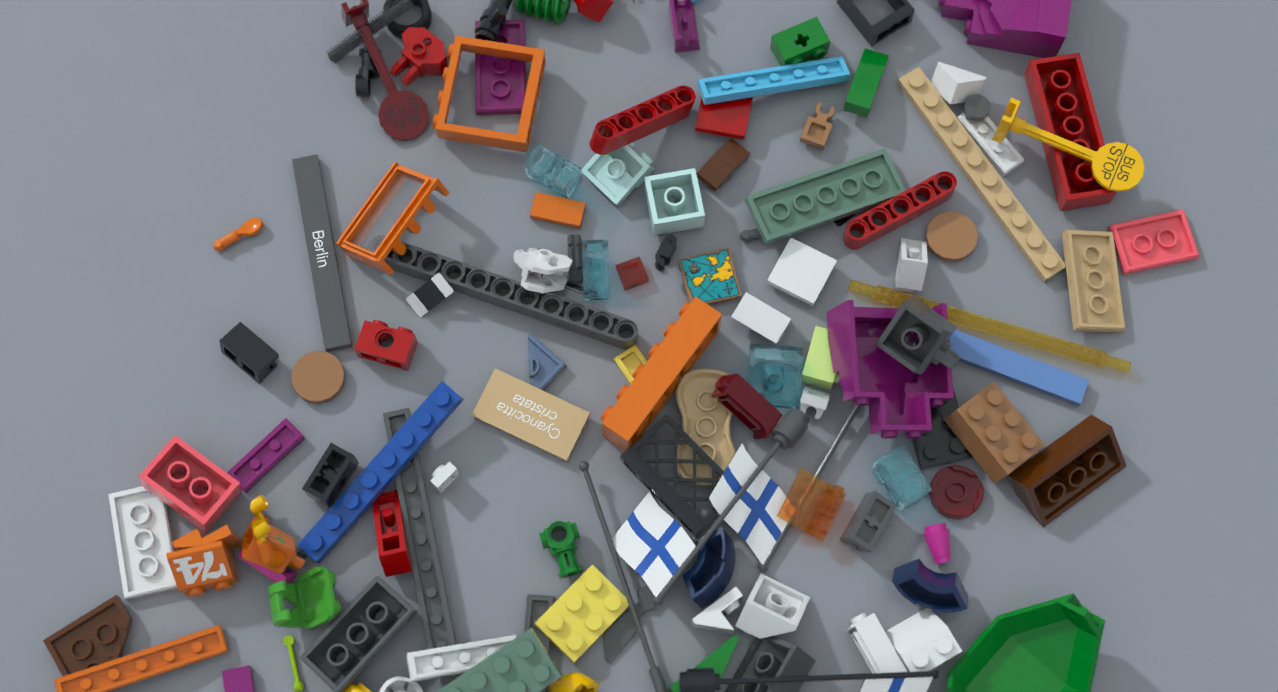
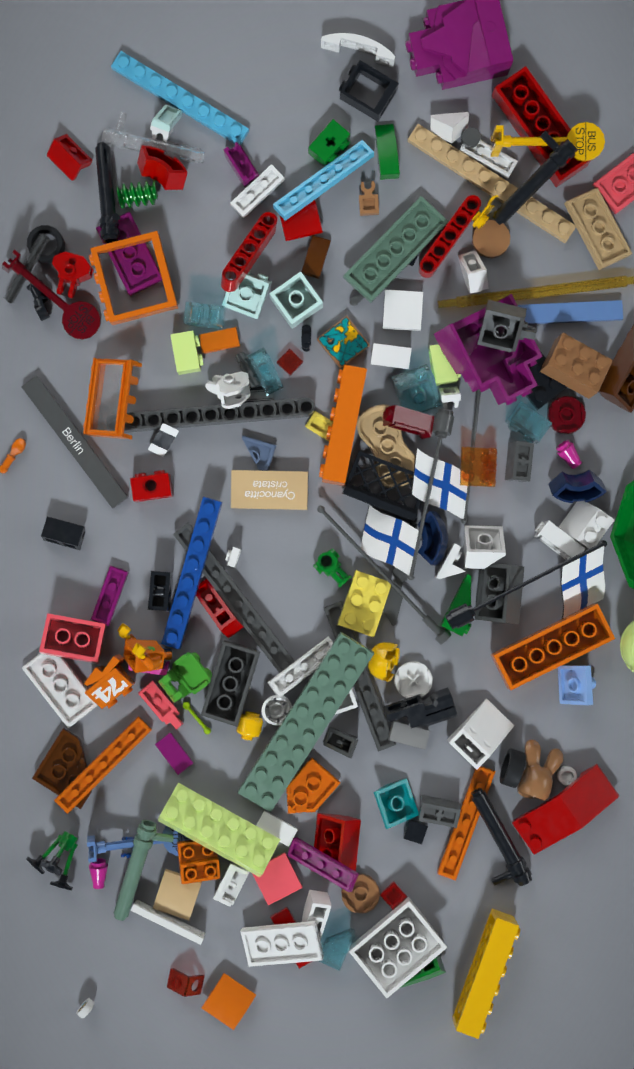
camera: 25 degrees left, 15 degrees up
(256, 623) = (160, 704): none -> coral hinge
(318, 377) = (117, 528): medium nougat tile -> none
(510, 206) = (186, 352): none -> yellowish green brick
(687, 61) = (257, 191): none -> white plate
(952, 202) = (481, 217): none -> yellow plate
(1072, 171) = (557, 159): none -> black cylinder

